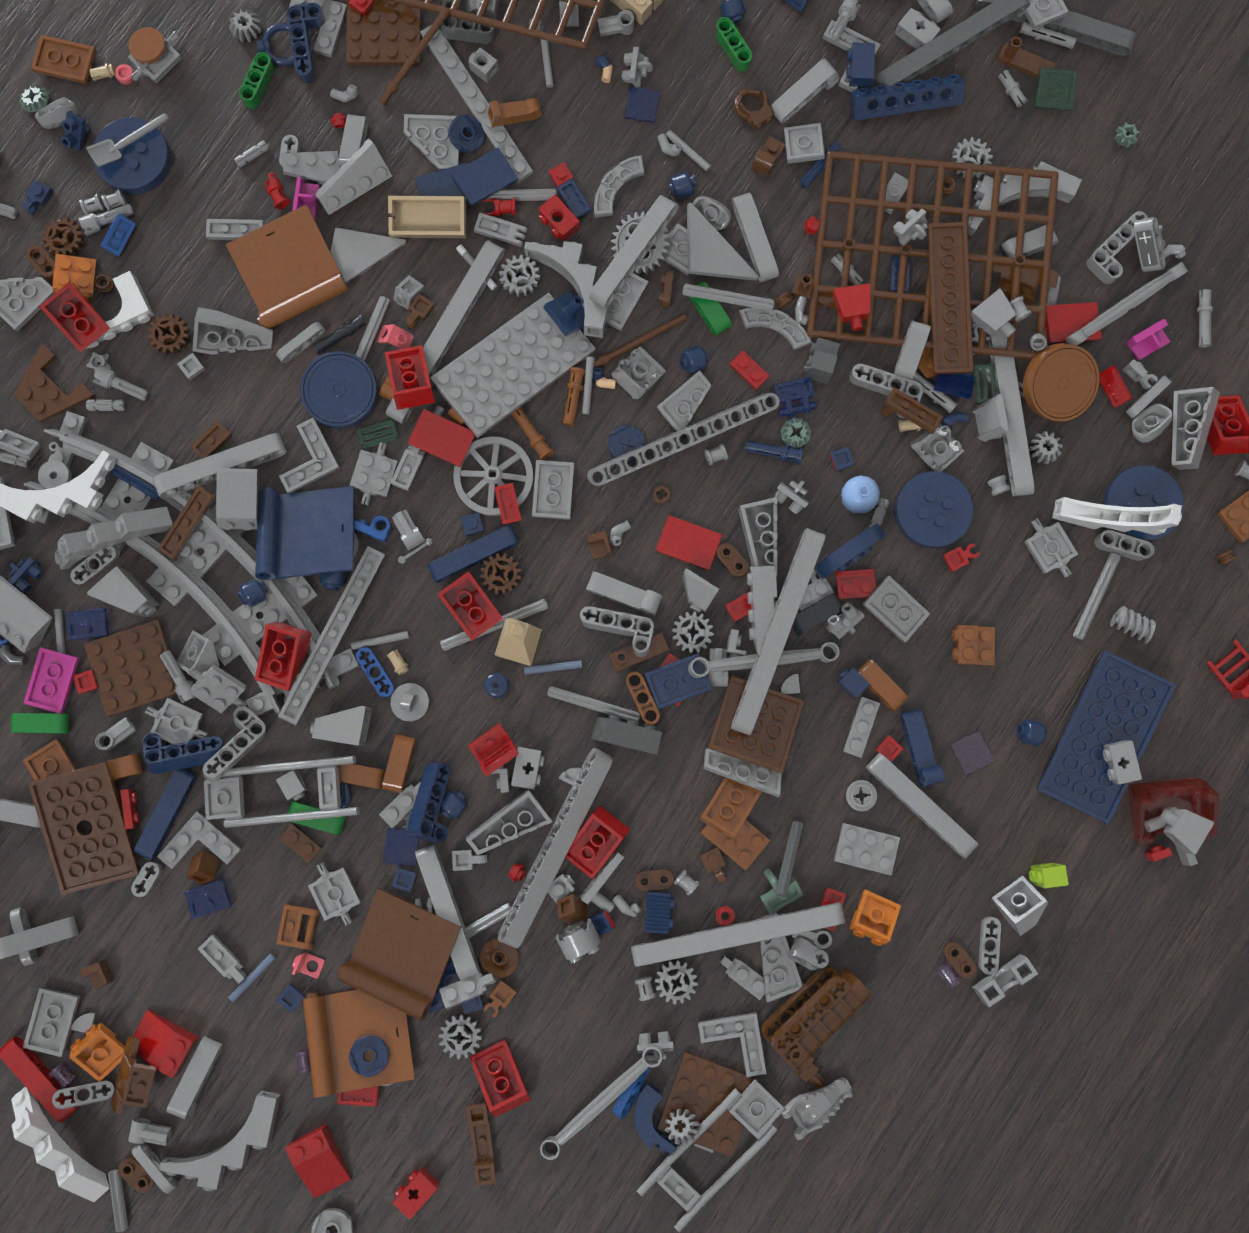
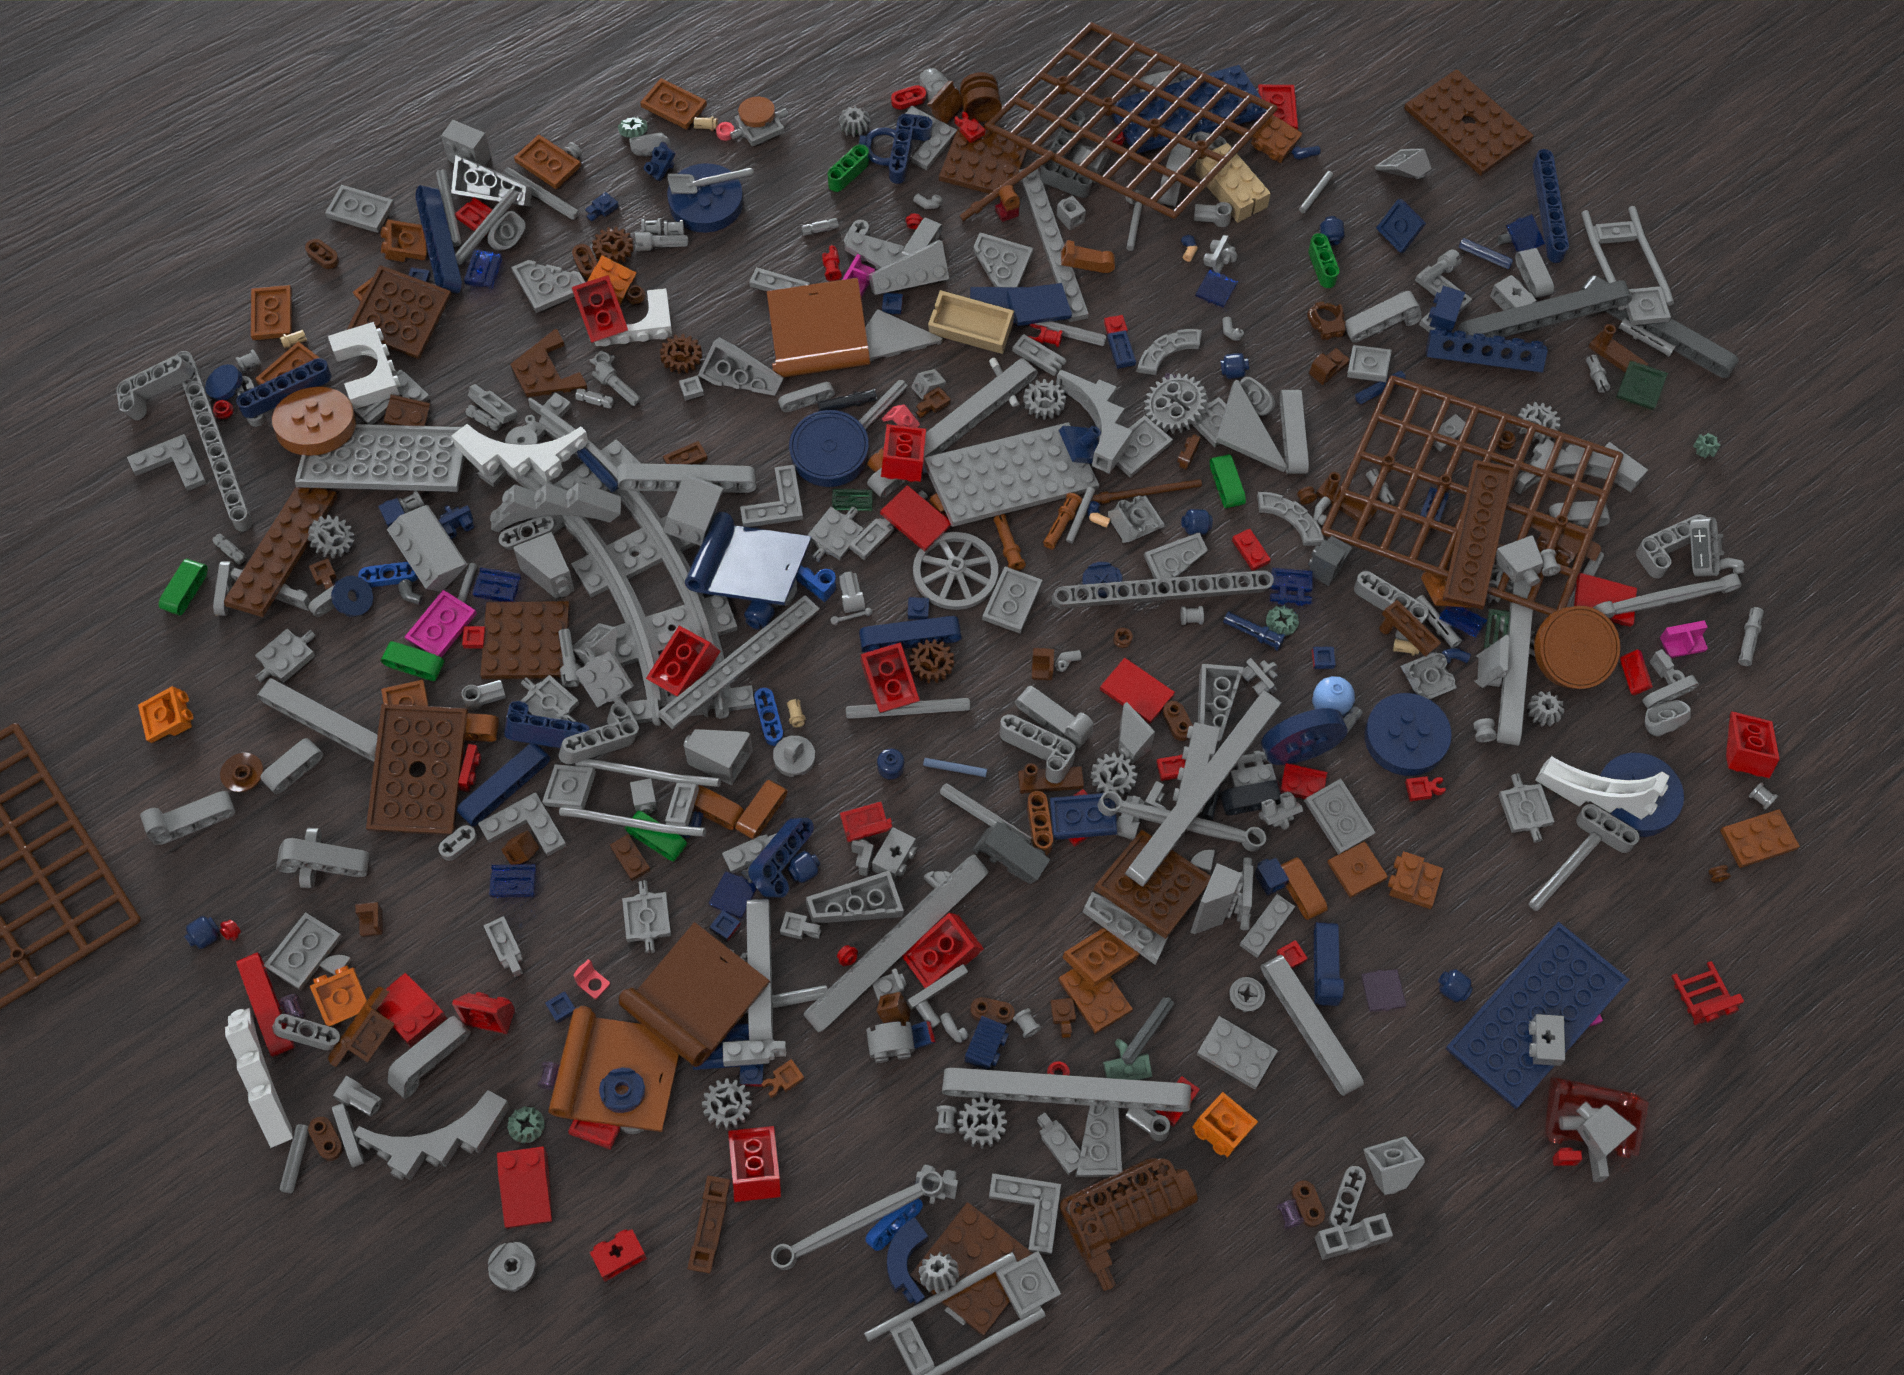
camera: 20 degrees right, 20 degrees down
(117, 235) = (665, 258): blue plate -> none
(187, 522) = (634, 517): reddish brown tile -> none
(227, 1028) = (485, 1012): none -> red slope
(252, 593) = (674, 600): dark blue head -> none
(252, 977) = (527, 975): sand blue bar -> none
(291, 926) = (590, 933): dark orange plate -> none
(306, 1101) = (529, 1134): none -> sand green gear
(347, 217) = (892, 303): none -> dark blue plate
(379, 640) = (785, 688): light grey bar -> none
(422, 75) = (1008, 204): none -> leg
(457, 138) = (1027, 270): dark blue tile -> none
(507, 503) = (962, 596): red plate -> none
(507, 955) = (798, 1035): reddish brown dish -> none
(518, 641) = (928, 728): tan slope -> none
(556, 208) = (1100, 351): red brick -> none
(633, 251) = (1165, 402): light grey beam -> none
(689, 151) = (1250, 340): light grey bar -> none
(728, 297) = (1249, 473): light grey axle -> none
(808, 954) = (1136, 1136): light grey piece -> none
(811, 225) = (1355, 436): red plate -> none
(815, 1107) = (1095, 1308): light grey animal -> none
(816, 730) = (1218, 899): none -> light grey slope
(834, 703) = (1244, 900): none -> light grey plate
(853, 304) = (1376, 512): red torso -> none
(912, 349) = (1425, 571): light grey beam -> none
(913, 228) = (1457, 460): light grey hips -> none
(923, 651) = (1357, 869): none -> dark orange plate
(1038, 344) = (1560, 602): light grey hinge -> none
(1048, 875) = (1434, 1136): lime brick -> none
(1134, 622) = (1598, 909): light grey piece -> none
(1191, 424) = (1710, 729): light grey wedge -> none

